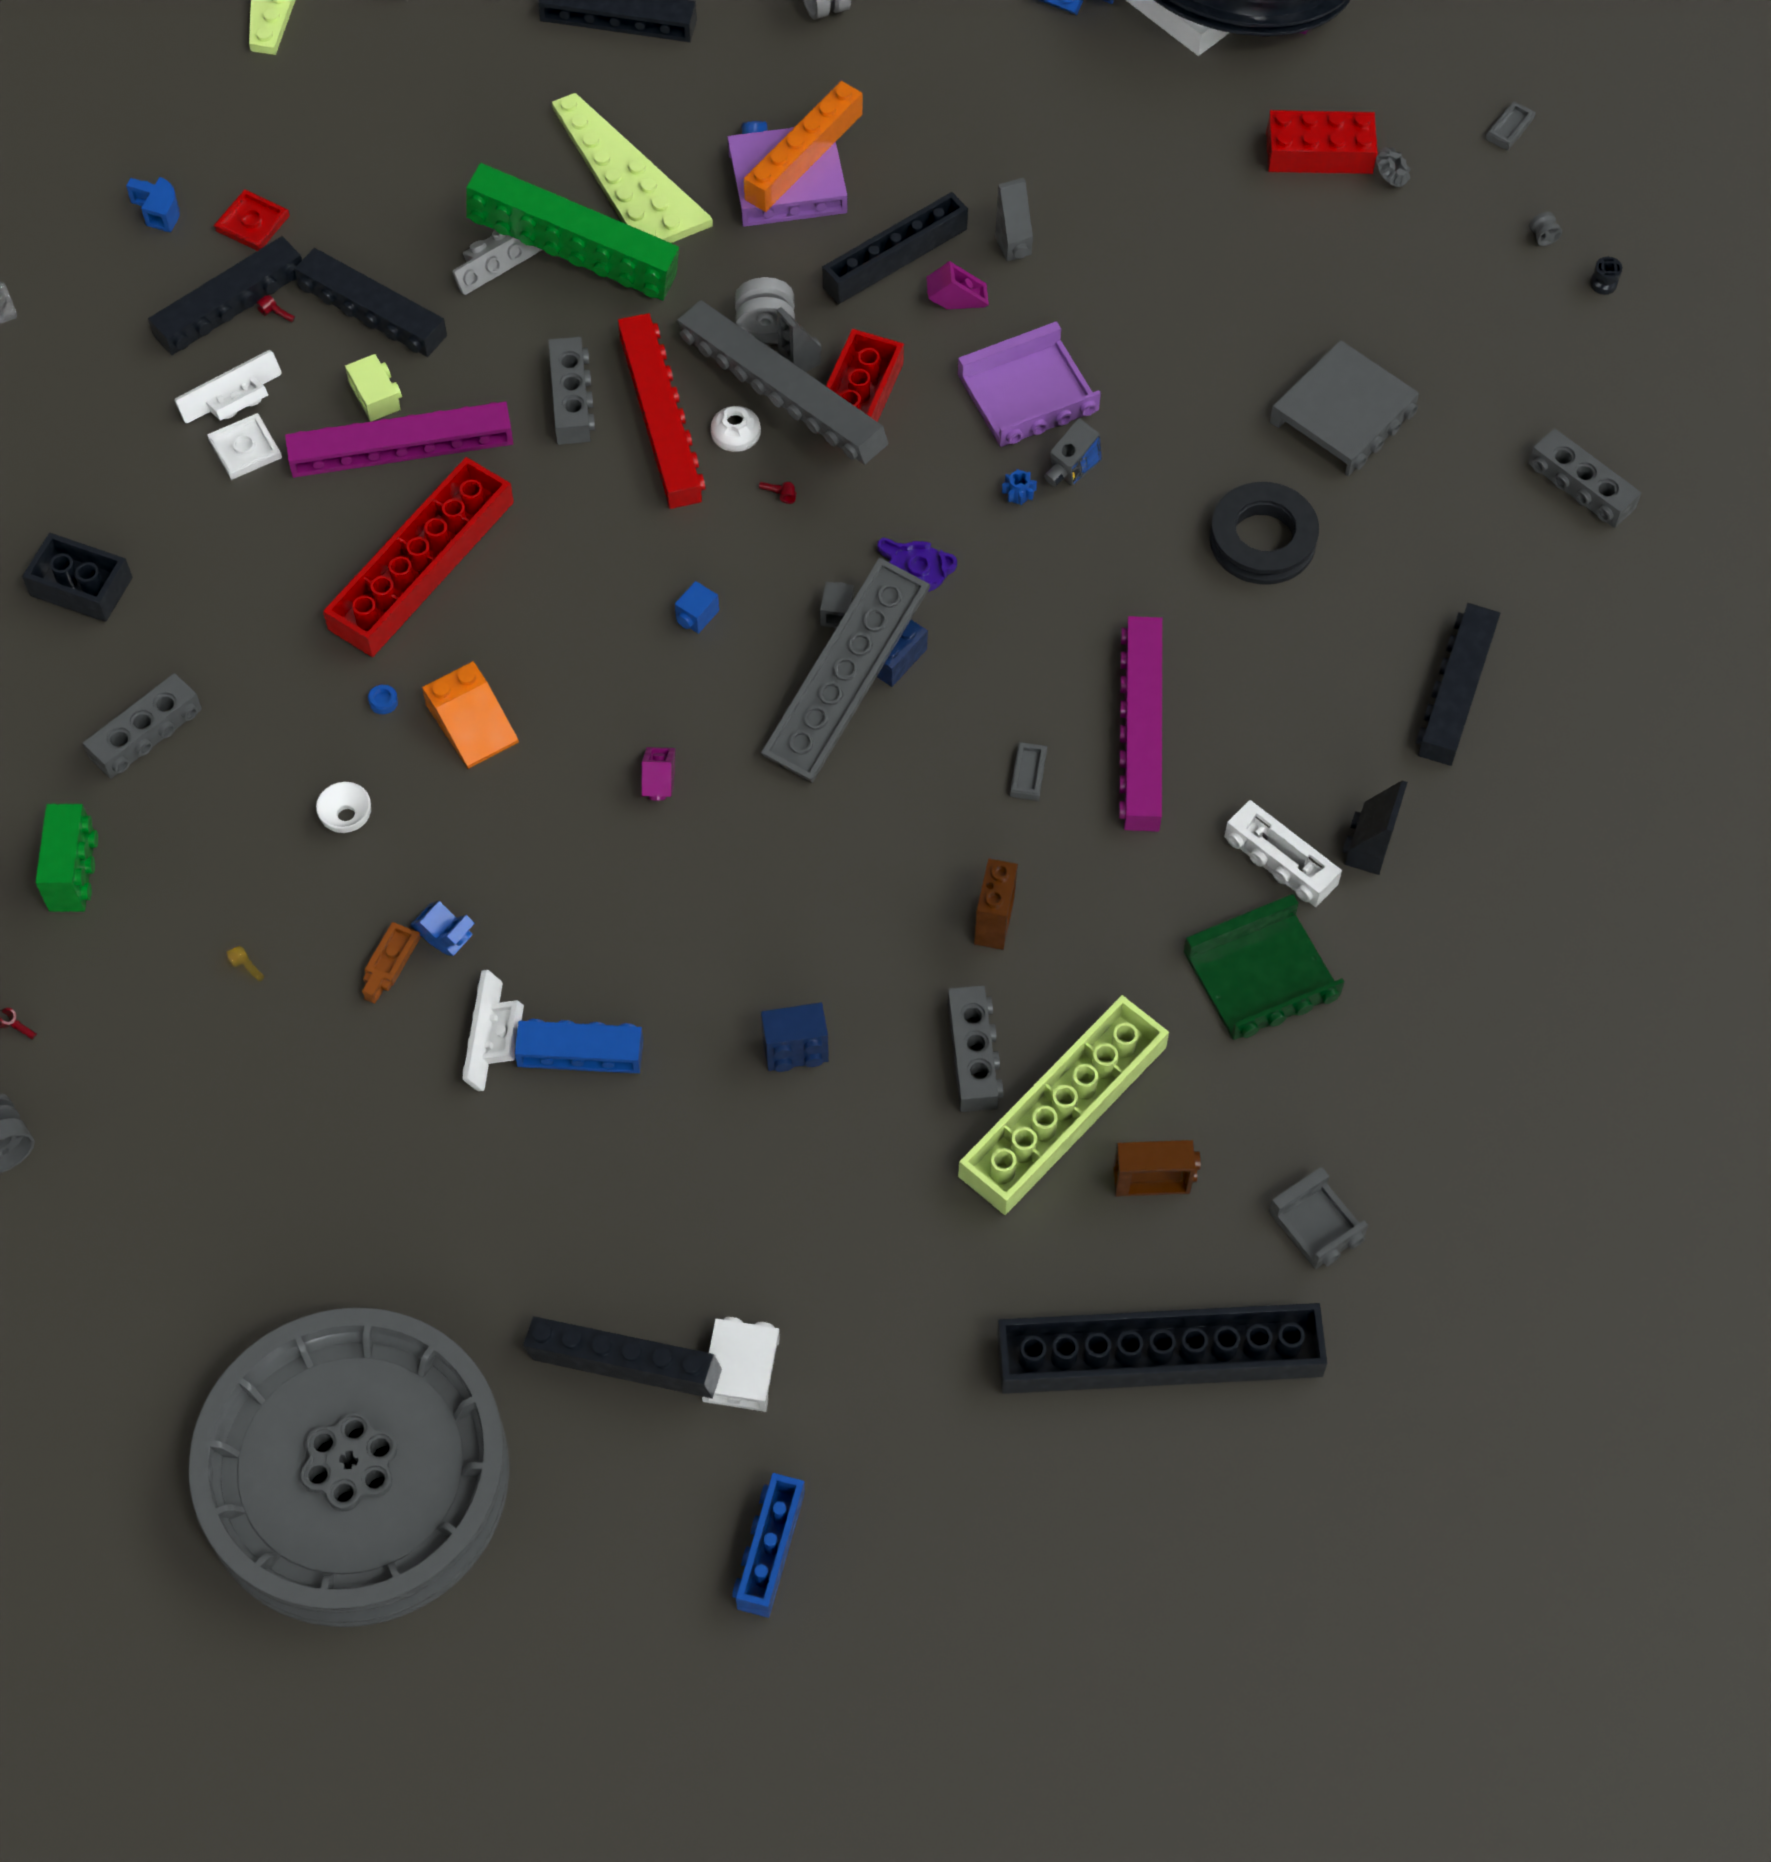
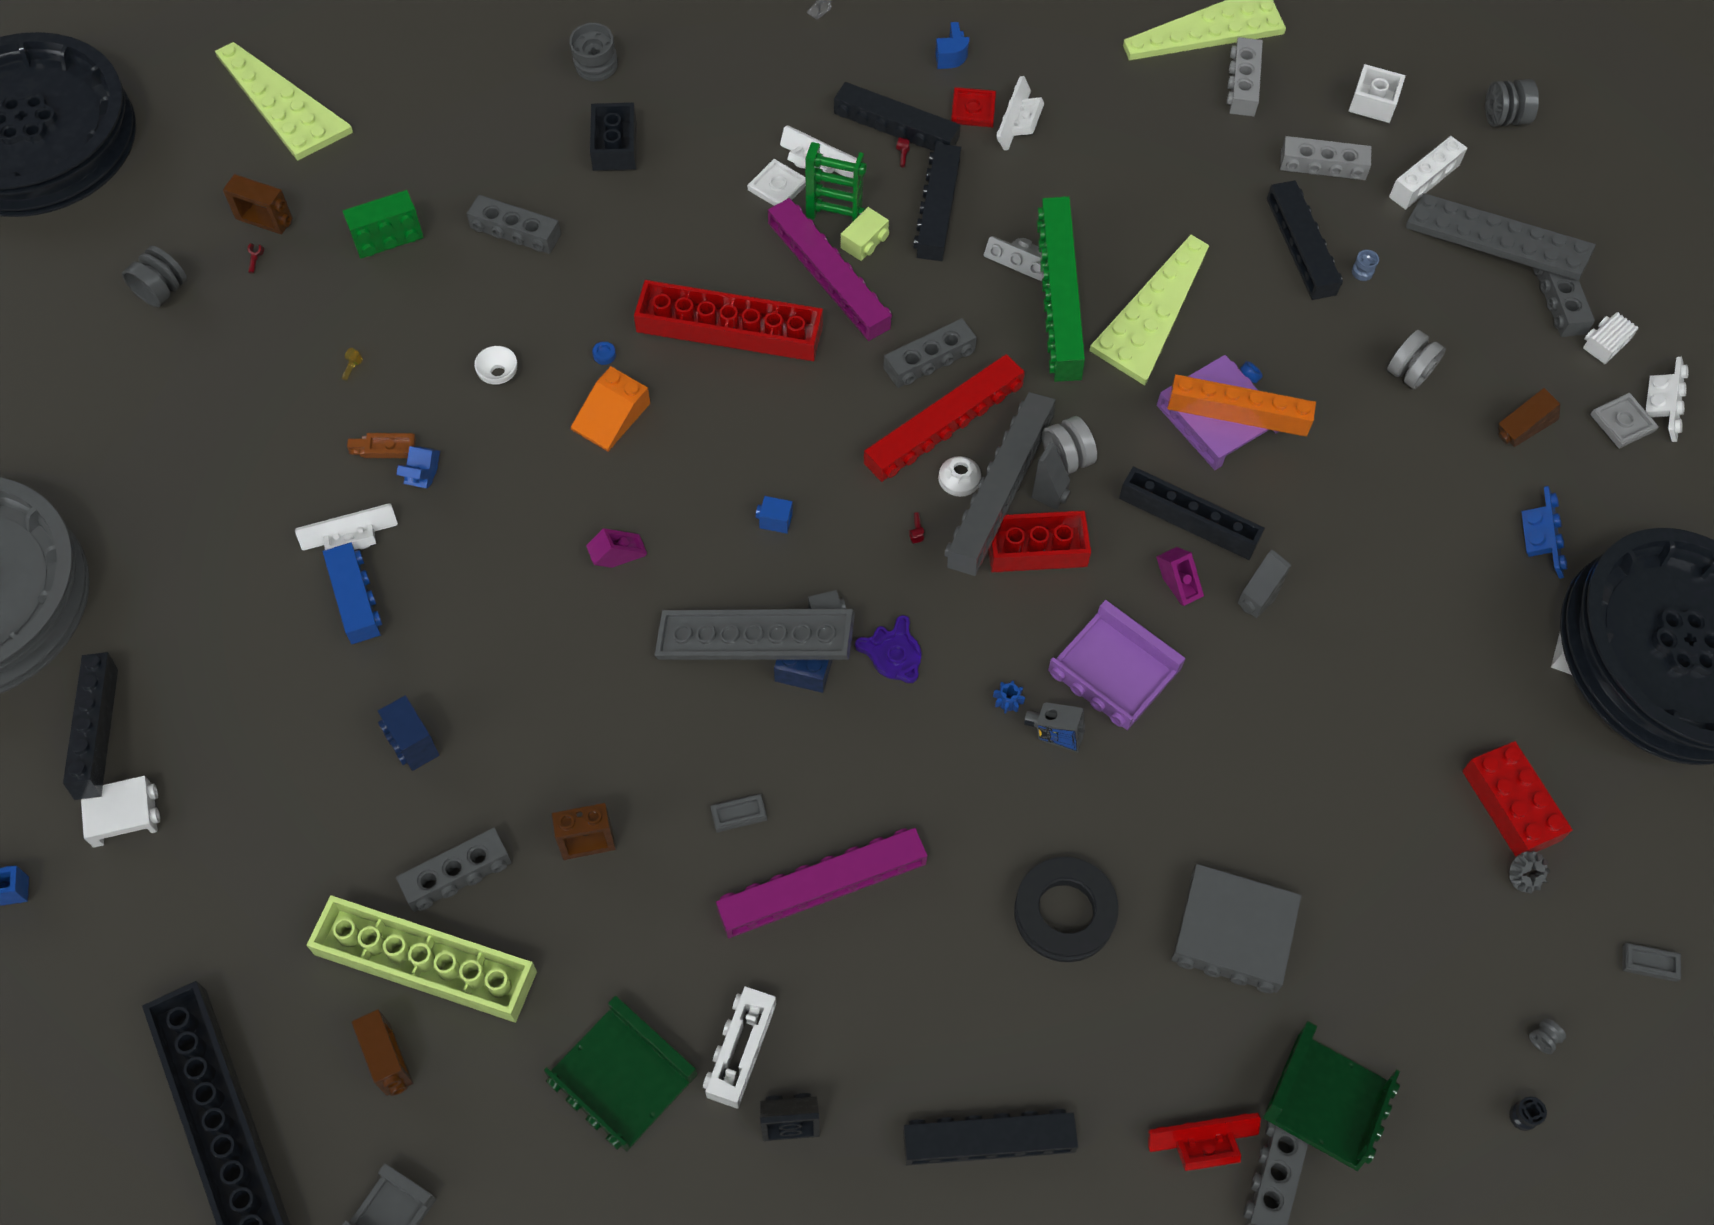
camera: 65 degrees right, 0 degrees up
(291, 378) = (814, 189): none -> green fence
(298, 175) = (1020, 115): none -> white bracket
(1534, 518) = (1206, 1142): none -> red bracket
(1539, 404) = (1331, 1101): none -> dark green panel

